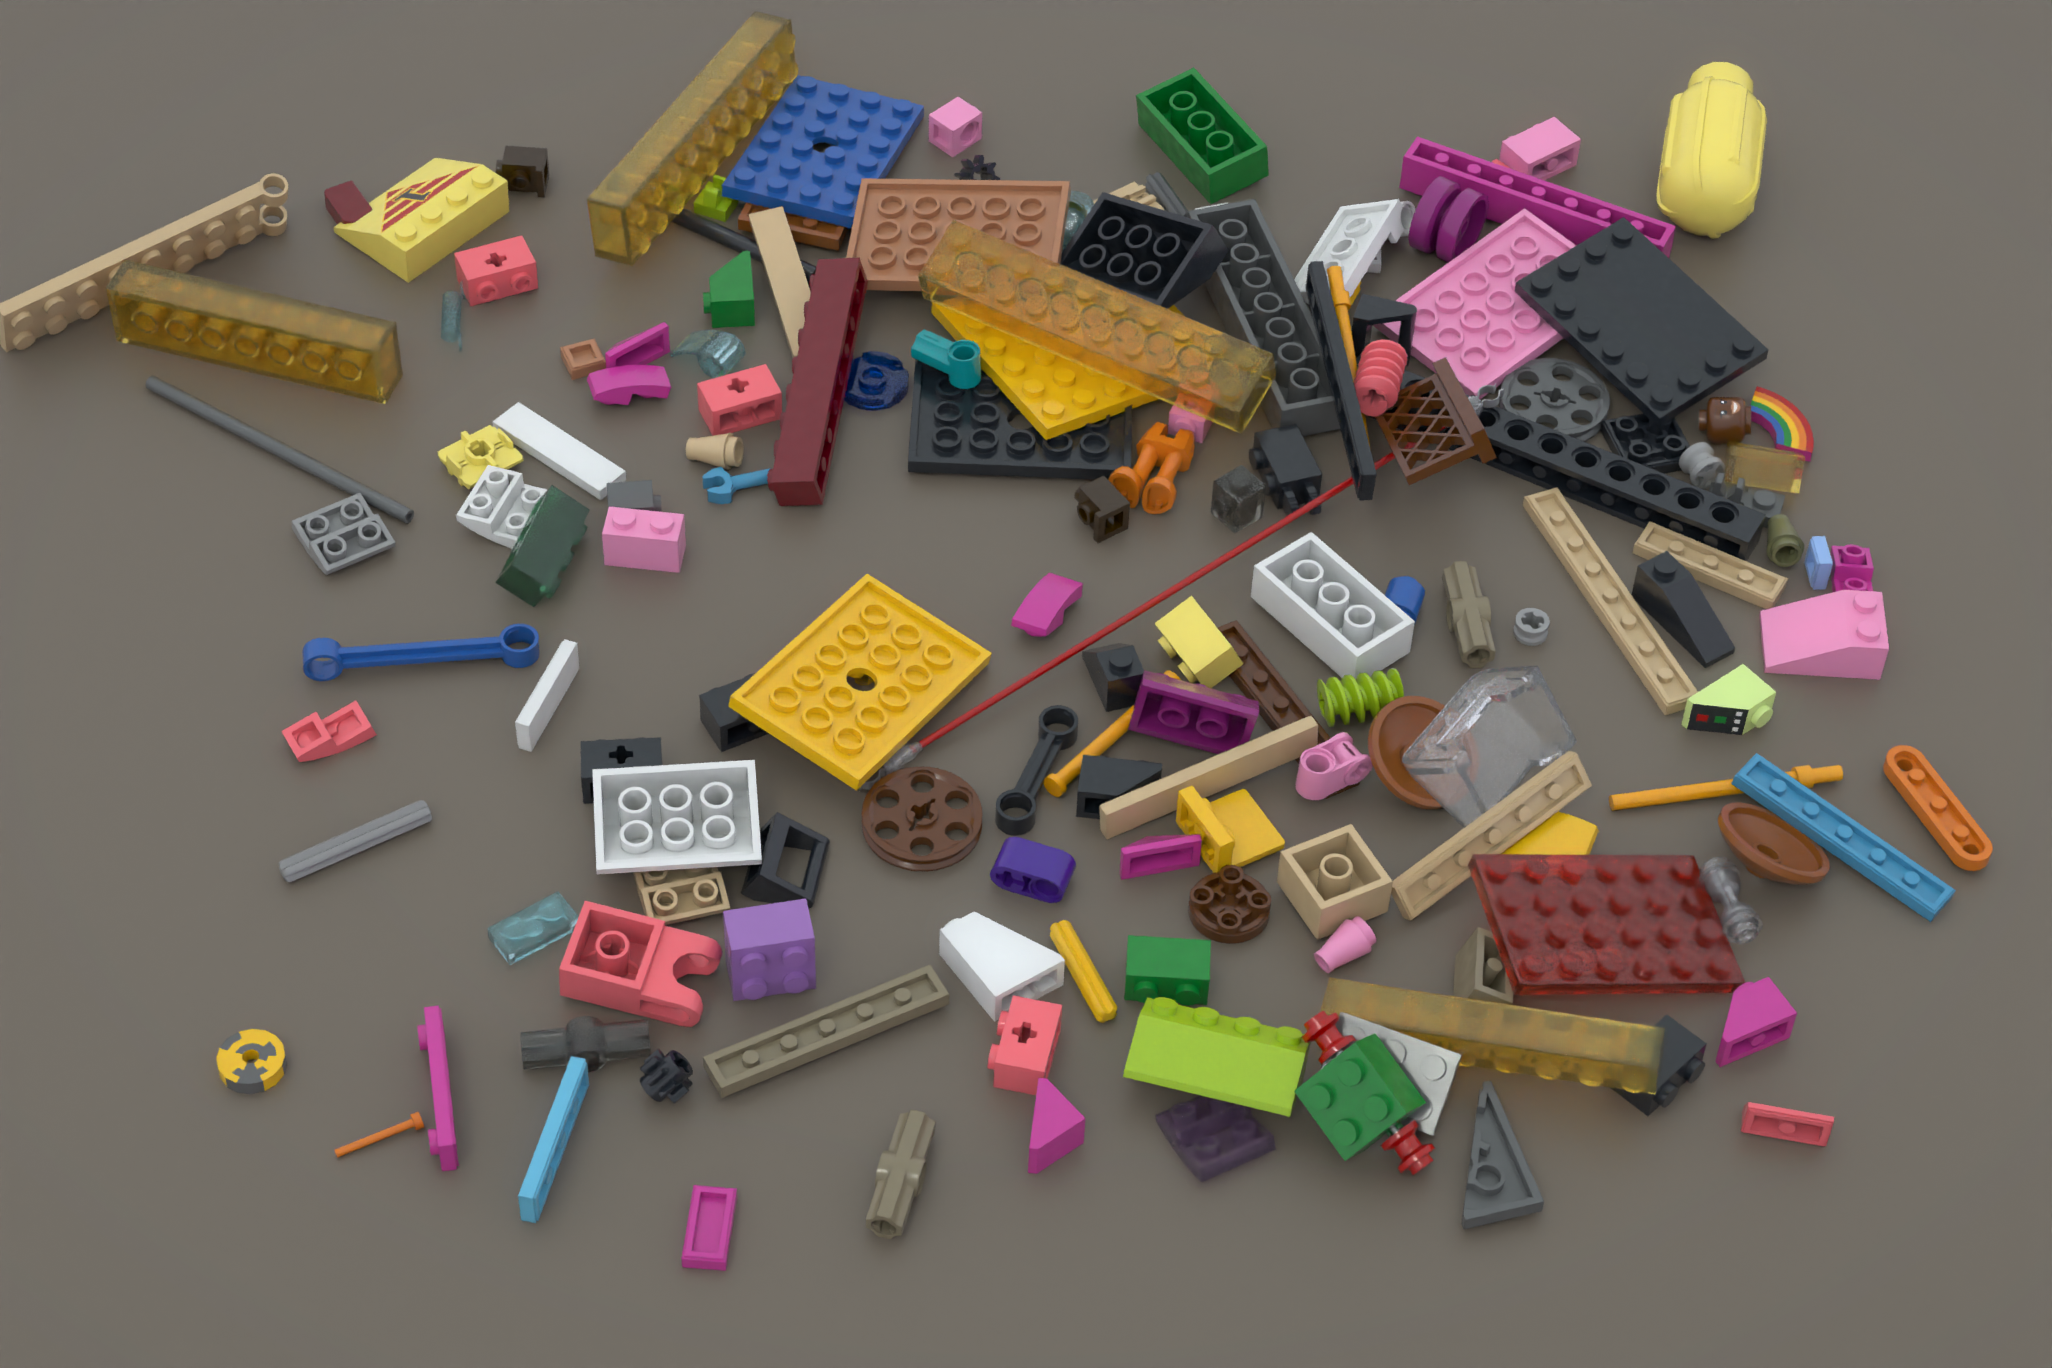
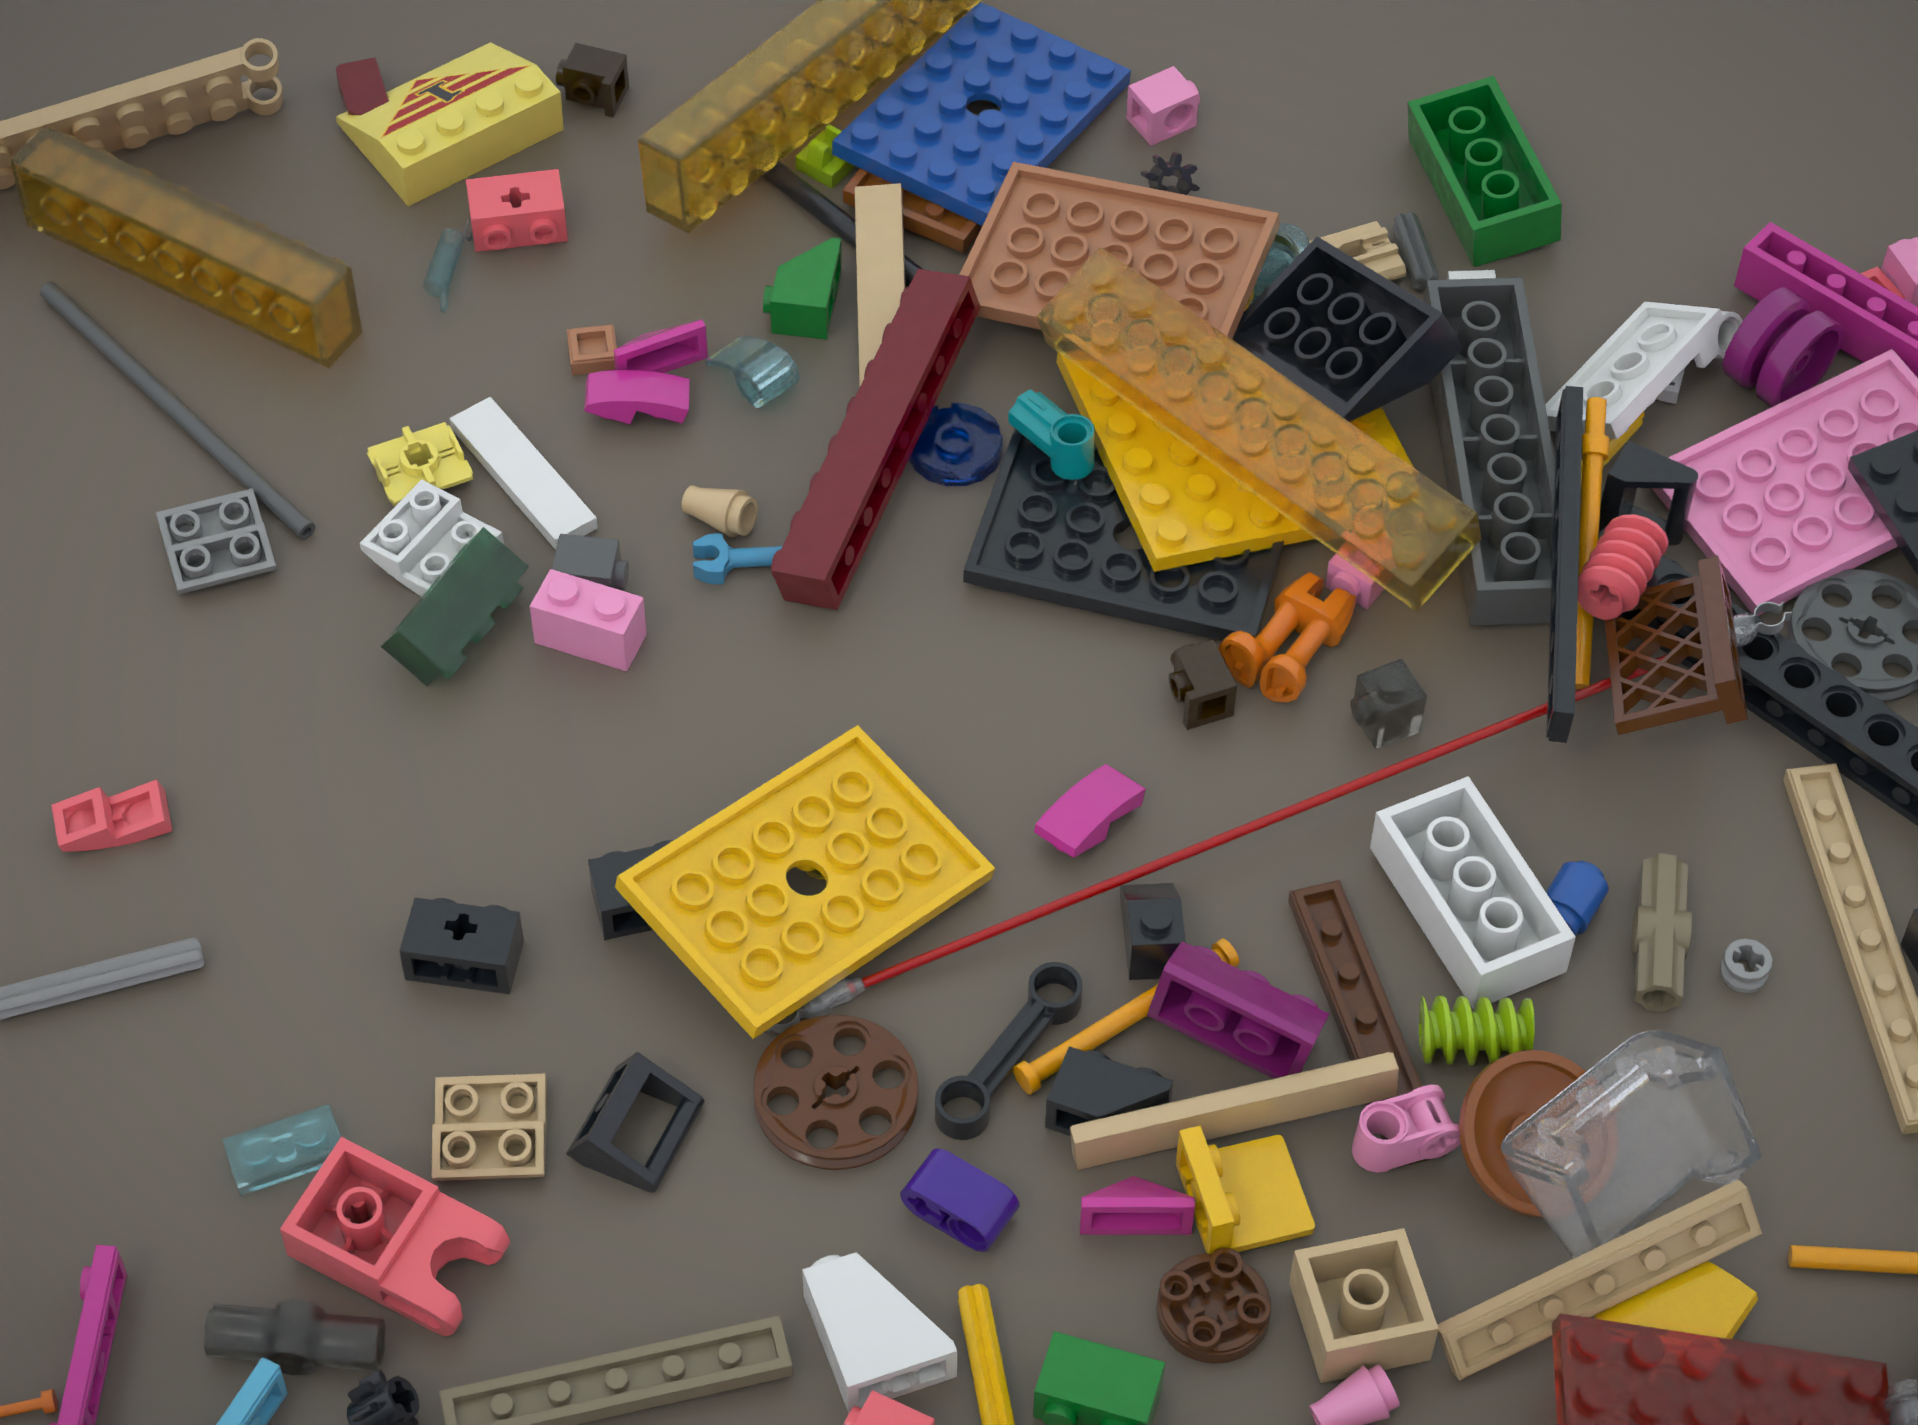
camera: 15 degrees right, 5 degrees up
(419, 652) = (138, 713): blue piece -> none
(547, 695) = (399, 819): white tile -> none
(676, 817) = (504, 1035): white slope -> none
(739, 400) = (770, 444): coral brick -> none
(769, 949) = (567, 1254): medium lavender brick -> none
(1198, 643) = (1273, 909): light yellow brick -> none
(1286, 468) = (1467, 669): black hinge -> none

